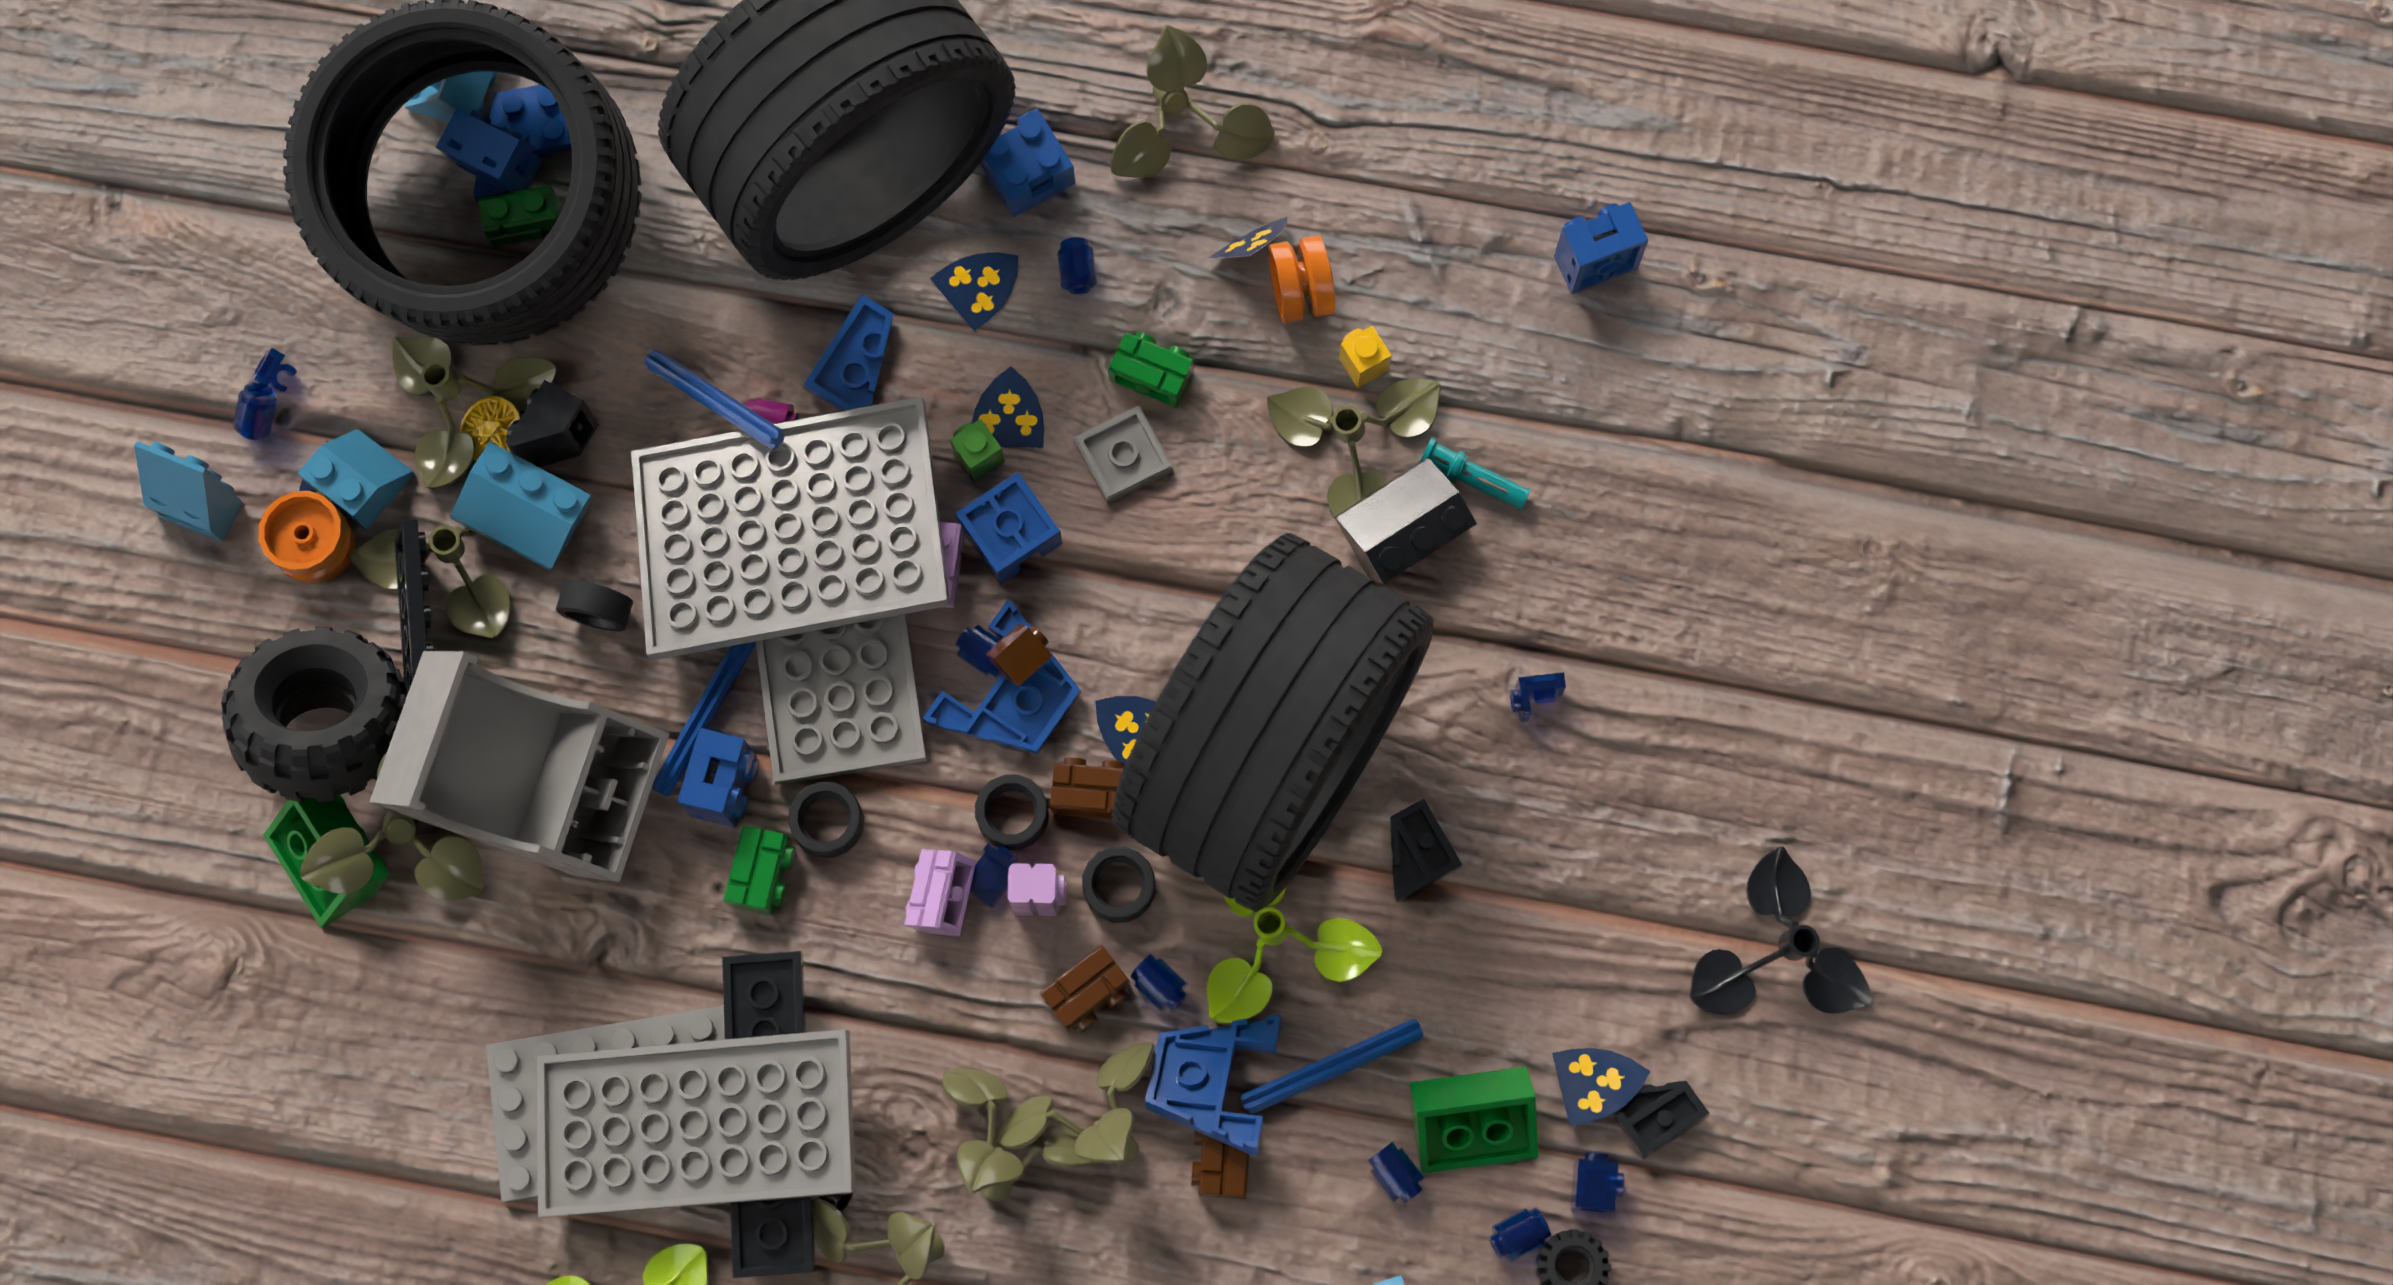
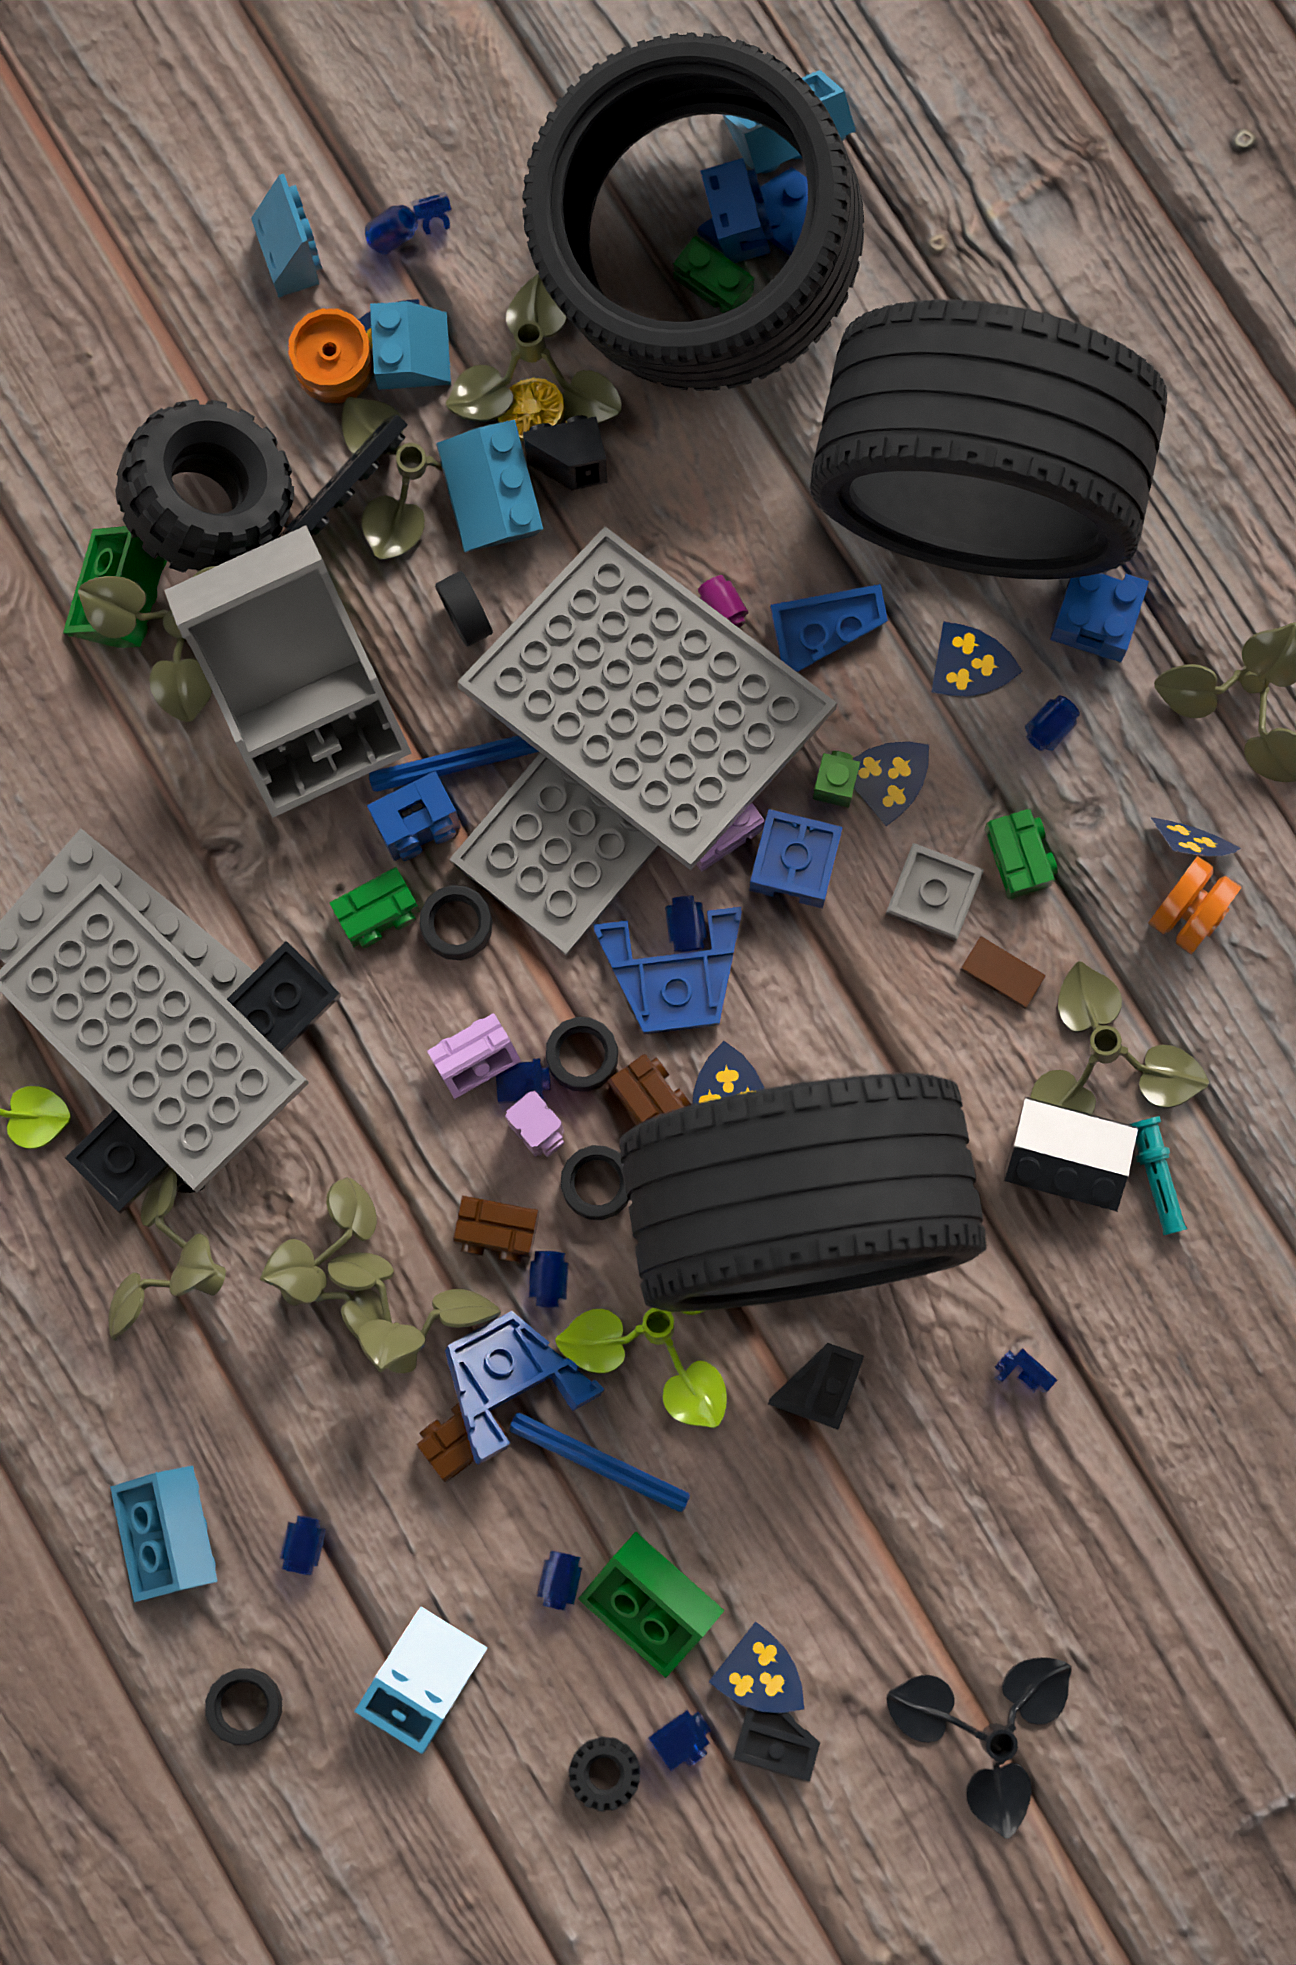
camera: 50 degrees right, 5 degrees up
(714, 399) = (698, 551): blue axle -> none
(1020, 653) = (703, 954): reddish brown brick -> none
(1227, 457) = (1002, 972): none -> reddish brown tile
(1364, 356) = (1178, 1006): yellow brick -> none
(1519, 1234) = (593, 1712): clear blue brick -> none

